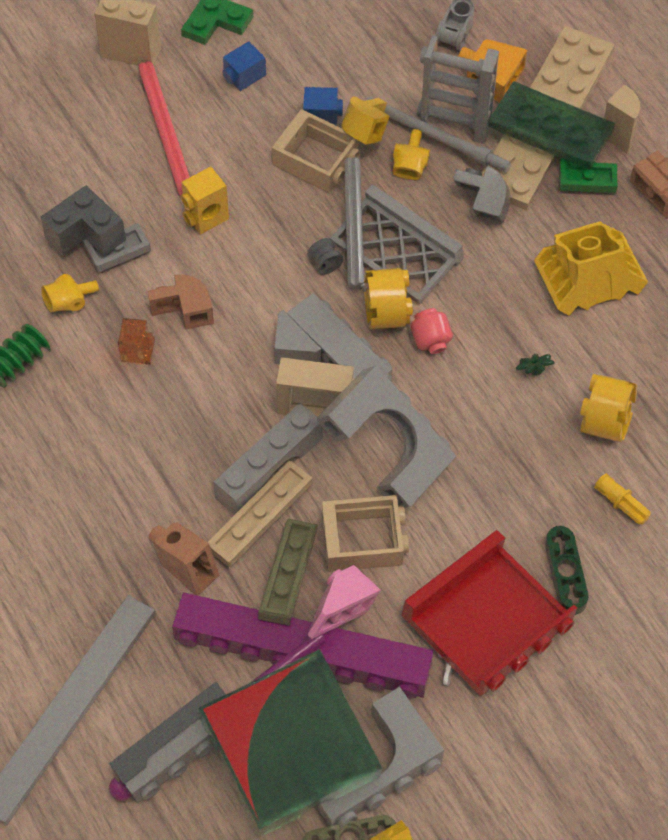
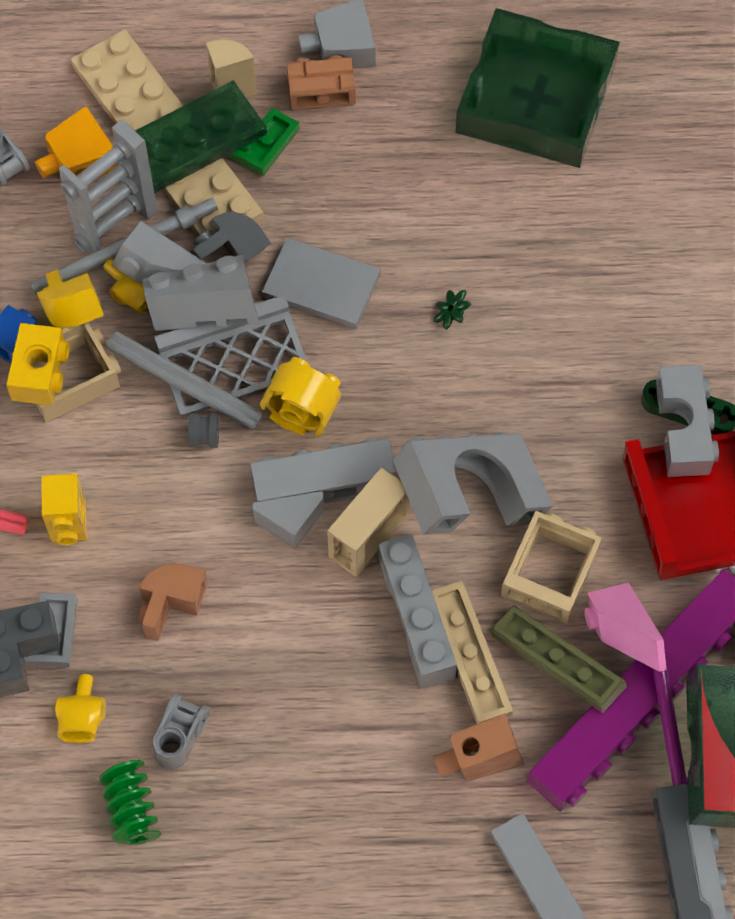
camera: 60 degrees left, 5 degrees up
(88, 358) = (183, 725): none -> light grey piece
(135, 342) = (190, 670): clear orange brick -> none
(298, 123) = (32, 346): none -> yellow brick
(423, 193) = (200, 294): none -> light grey wedge
(431, 331) = (359, 379): coral head -> none
(433, 159) = (150, 253): none -> light grey slope
(497, 271) = (322, 283): none -> light grey tile
(524, 580) = (685, 392): none -> light grey arch
(589, 267) = (375, 200): yellow slope -> none
(609, 407) = (549, 270): yellow brick -> none
(622, 499) = (644, 317): yellow axle -> none

